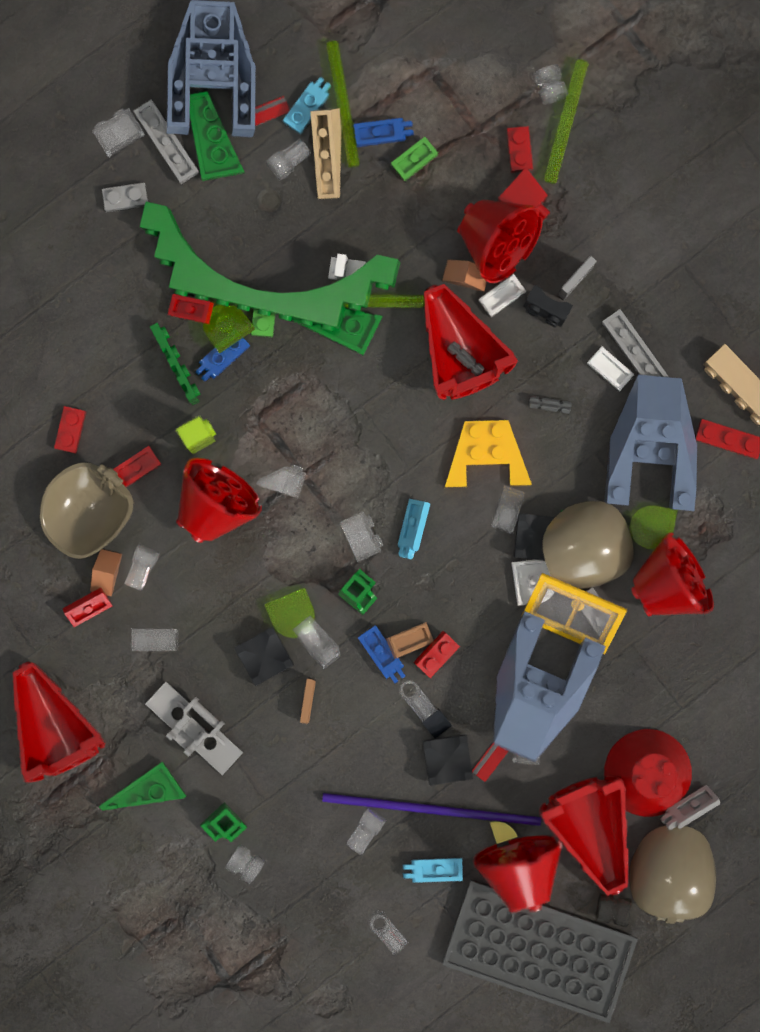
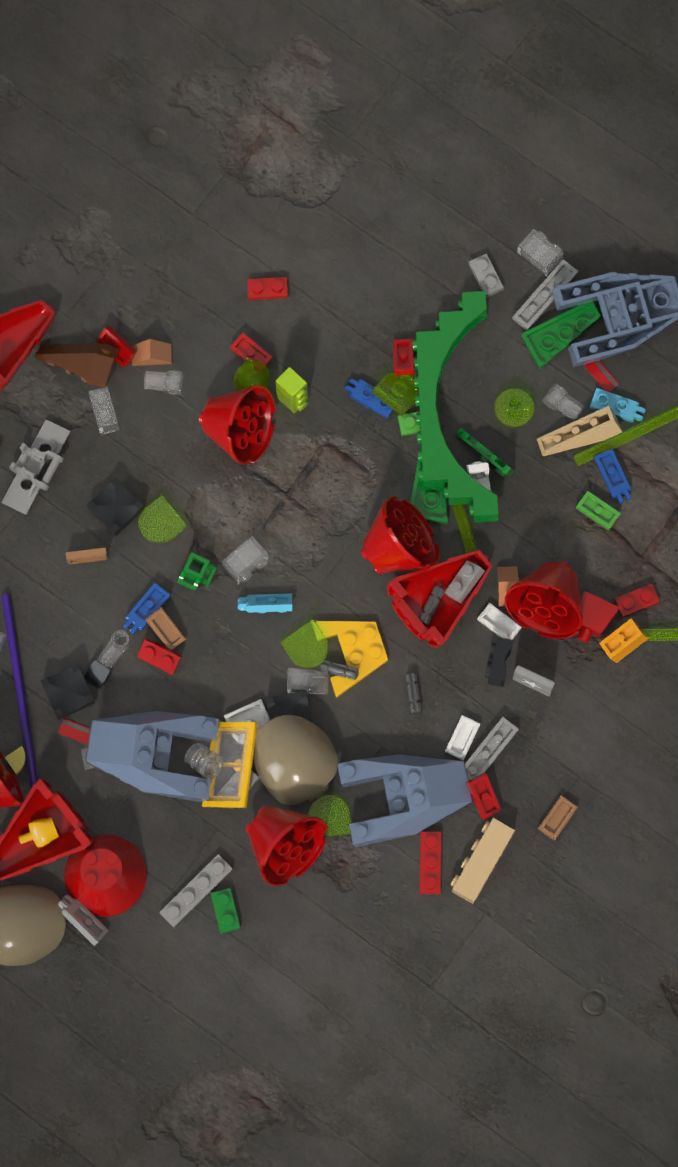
camera: 80 degrees right, 10 degrees down
(85, 509) = (200, 317): dark tan piece -> none
(96, 642) = (90, 361): none -> reddish brown wedge
(166, 474) = (251, 373): none -> clear neon green piece
(171, 355) = (351, 356): green wing -> none
(279, 211) = (514, 408): none -> clear neon green piece
(285, 481) = (275, 481): clear slope -> none
(317, 642) = (140, 548): clear slope -> none
(322, 255) = (486, 456): none -> green wing
(392, 369) = (400, 539): none -> red cone
(451, 317) = (464, 581): none -> light grey plate
(470, 499) = (307, 645): none -> clear neon green tile
(505, 472) = (339, 669): none -> dark grey axle
(560, 175) = (623, 641): none -> light orange hinge
(562, 639) = (203, 761): none -> clear wheel
(587, 827) = (41, 832): none -> yellow piece
(679, 364) = (483, 796): none -> red plate
(690, 684) = (195, 891): none -> light grey plate
(719, 297) = (557, 817): none -> medium nougat tile
(719, 660) = (225, 910): none -> green plate

